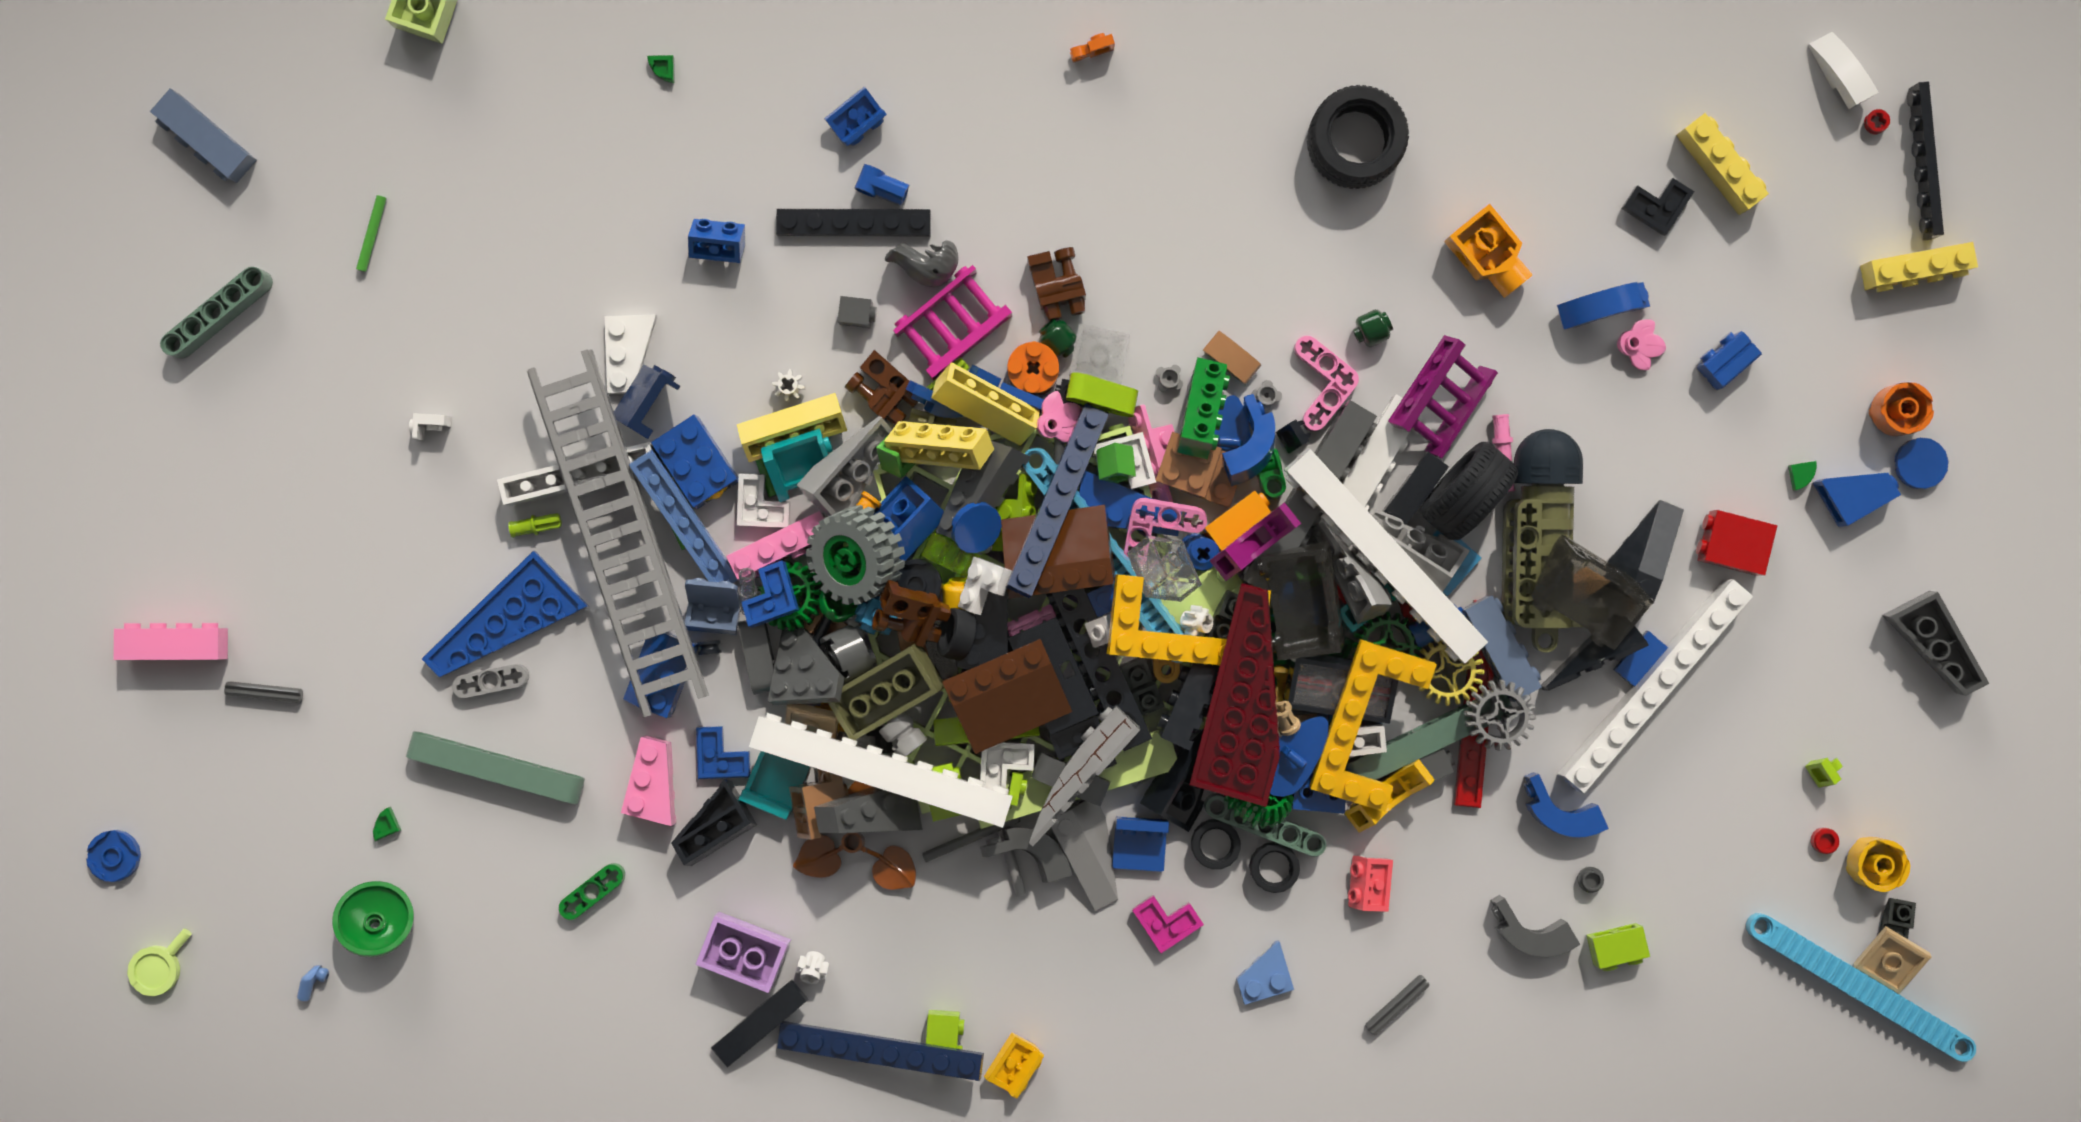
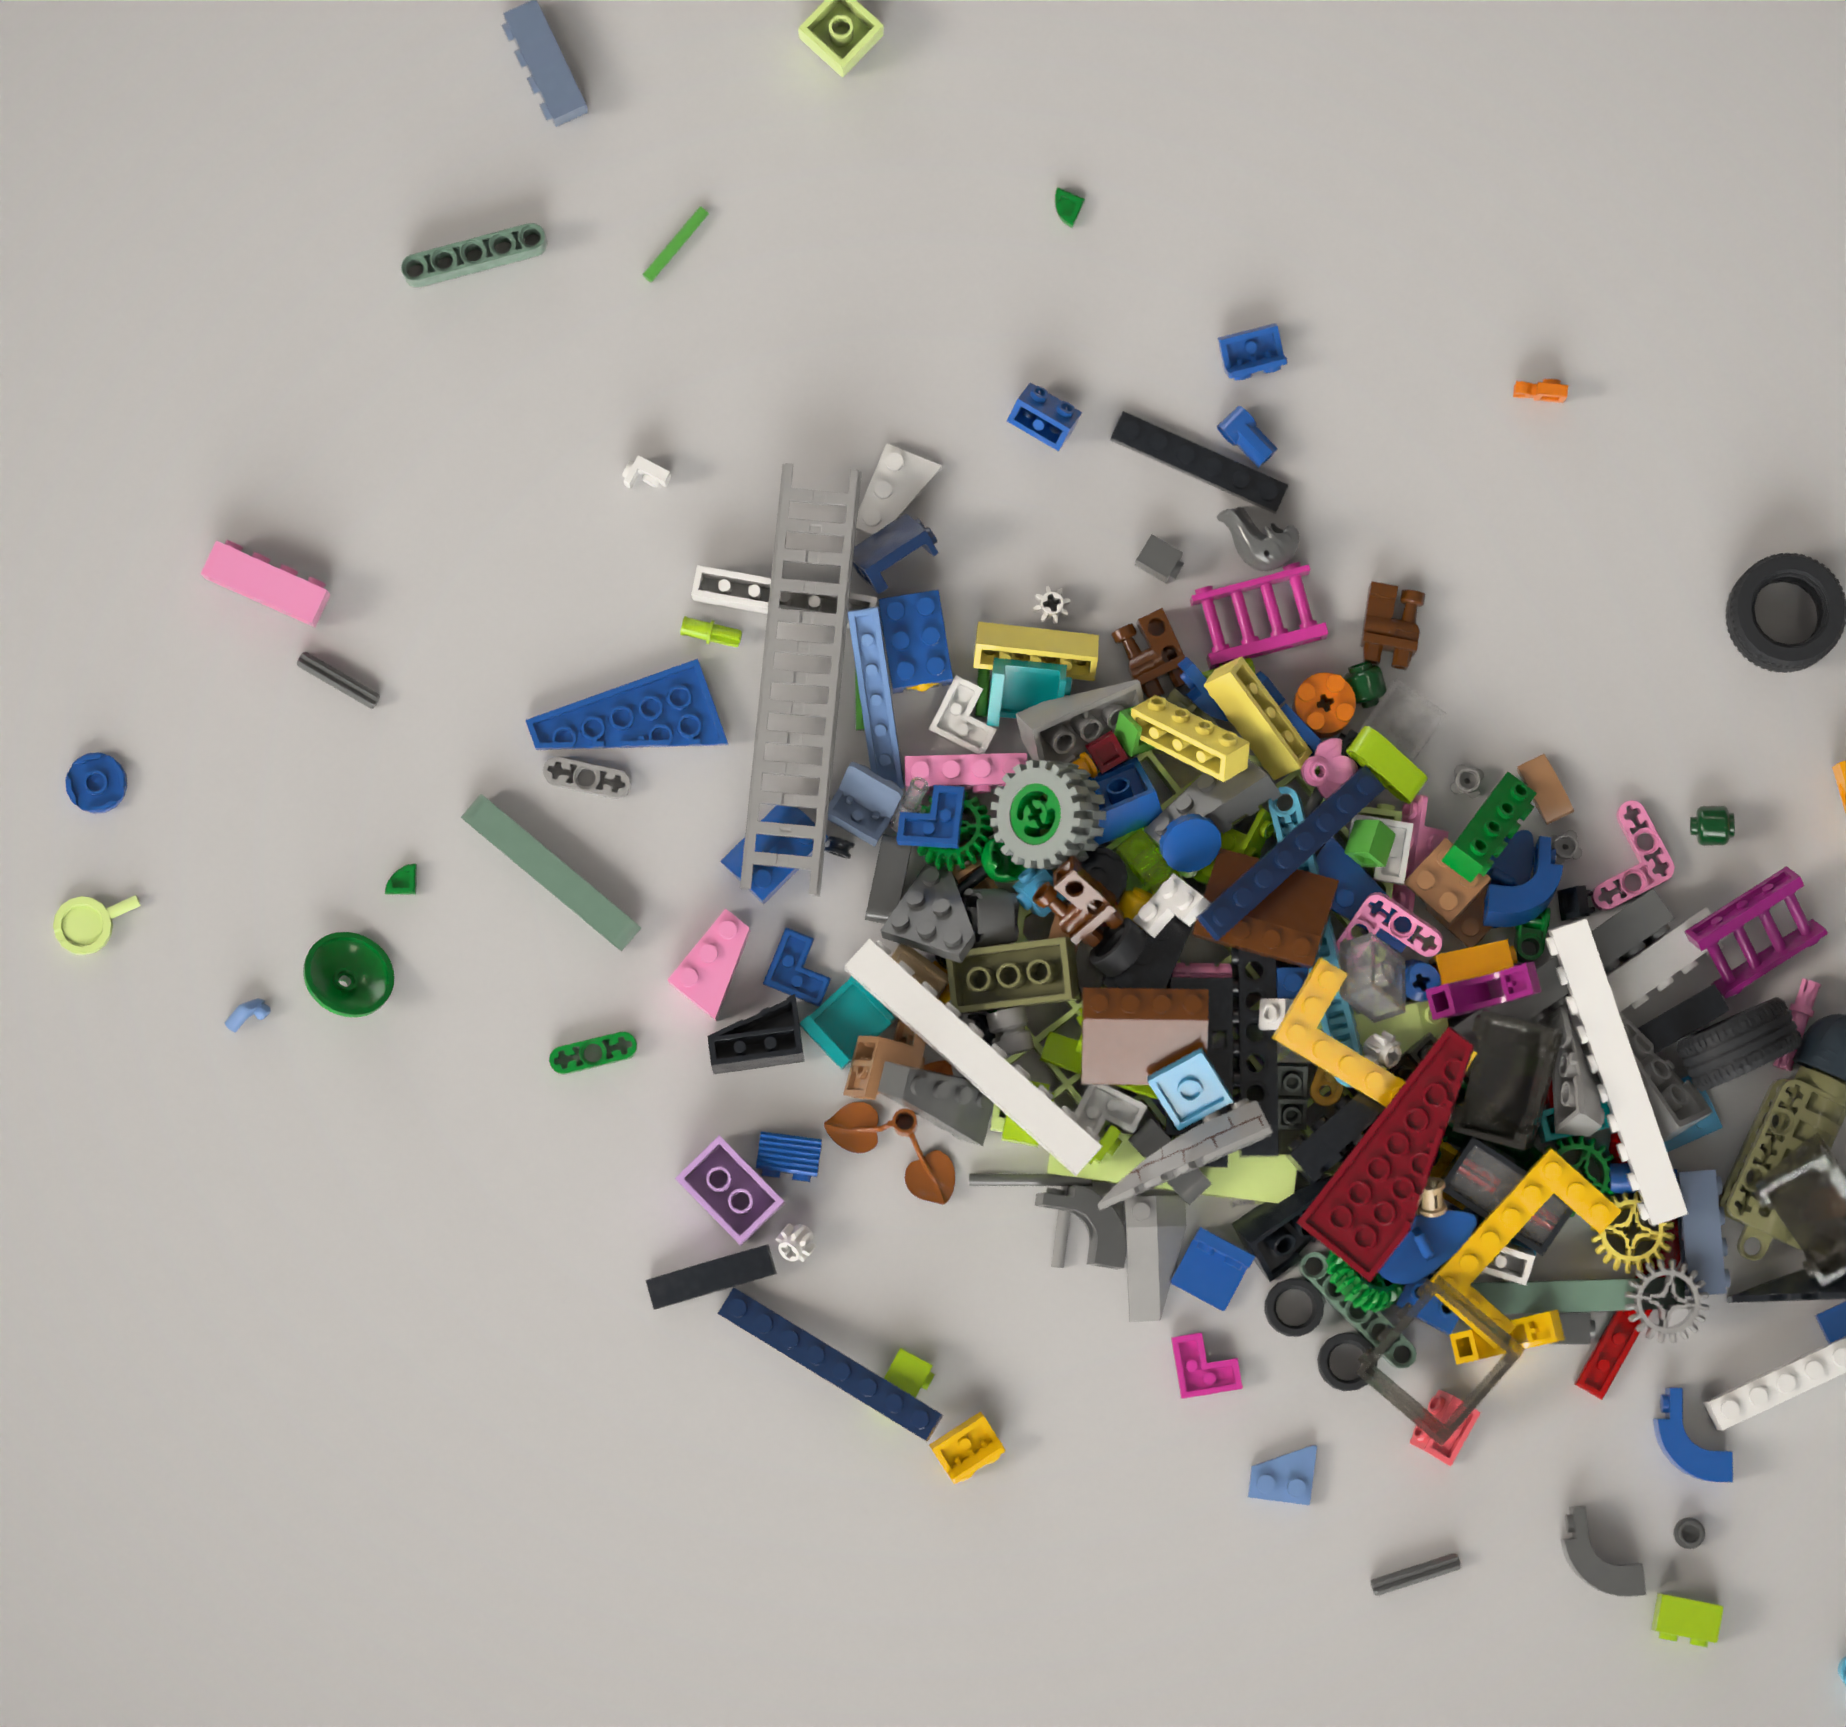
camera: 25 degrees right, 5 degrees down
(777, 902) = (788, 1155): none -> blue brick
(880, 482) = (1106, 752): none -> dark red plate
(1060, 721) = (1190, 1089): none -> plate
(1338, 884) = (1401, 1399): none -> clear smoke window

